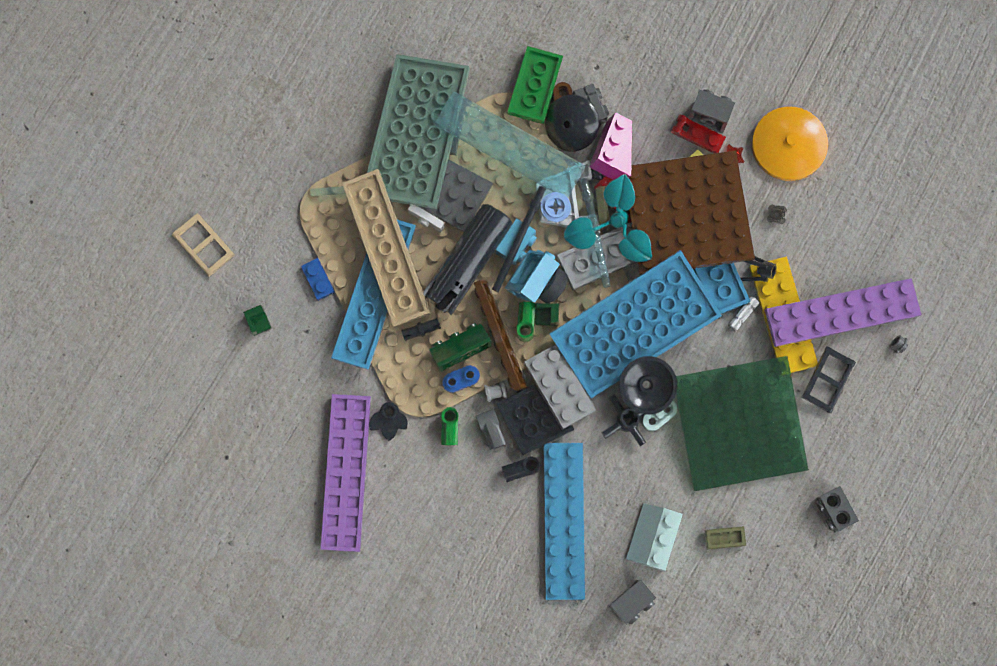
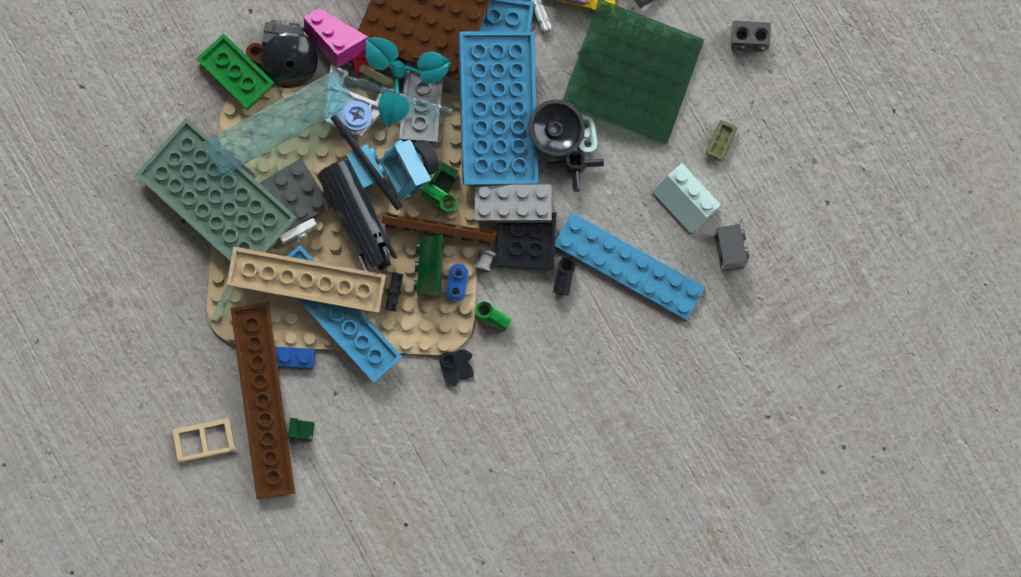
camera: 60 degrees left, 0 degrees up
(263, 273) = (262, 400): none -> reddish brown plate
(346, 473) = (480, 427): medium lavender plate -> none
(489, 425) = (510, 281): dark grey piece -> none

